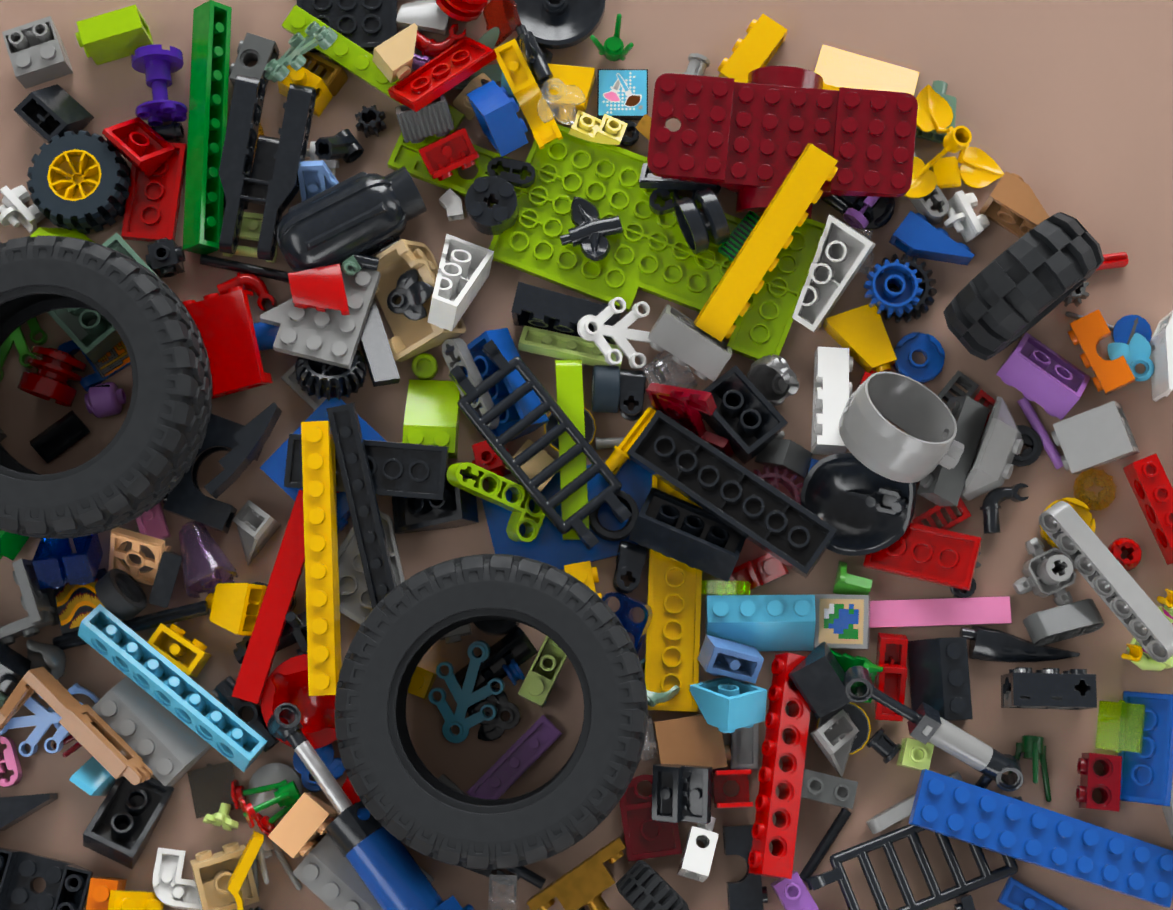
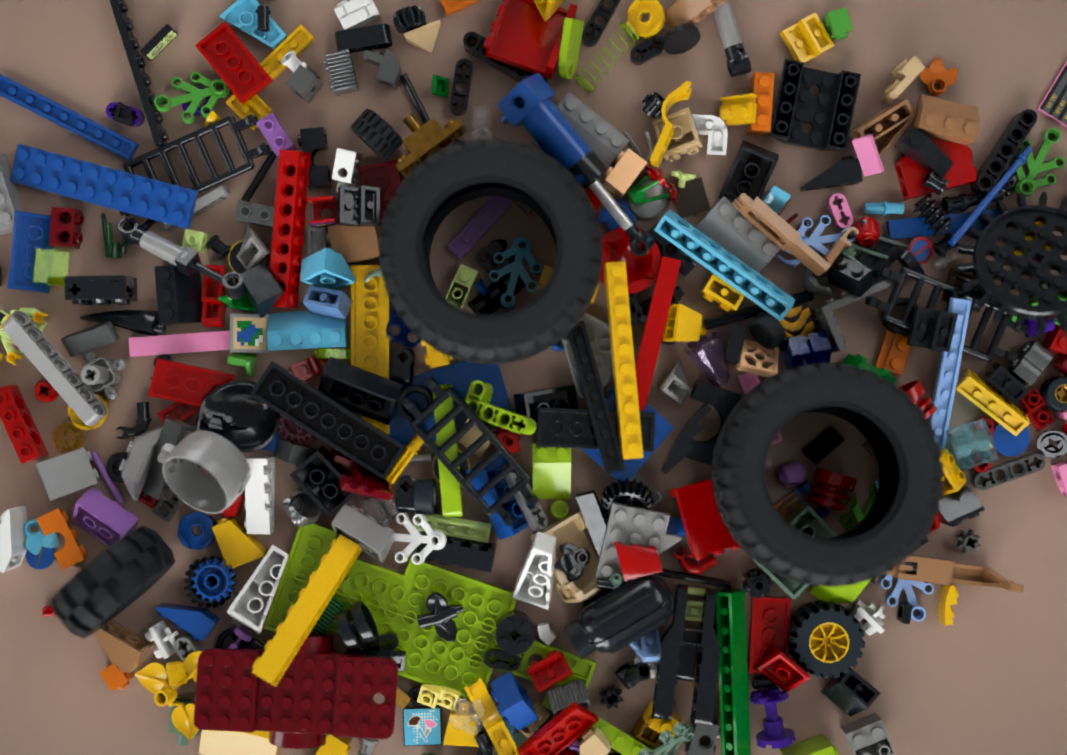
camera: 175 degrees right, 10 degrees up
(1029, 169) = (115, 678): none -> orange brick

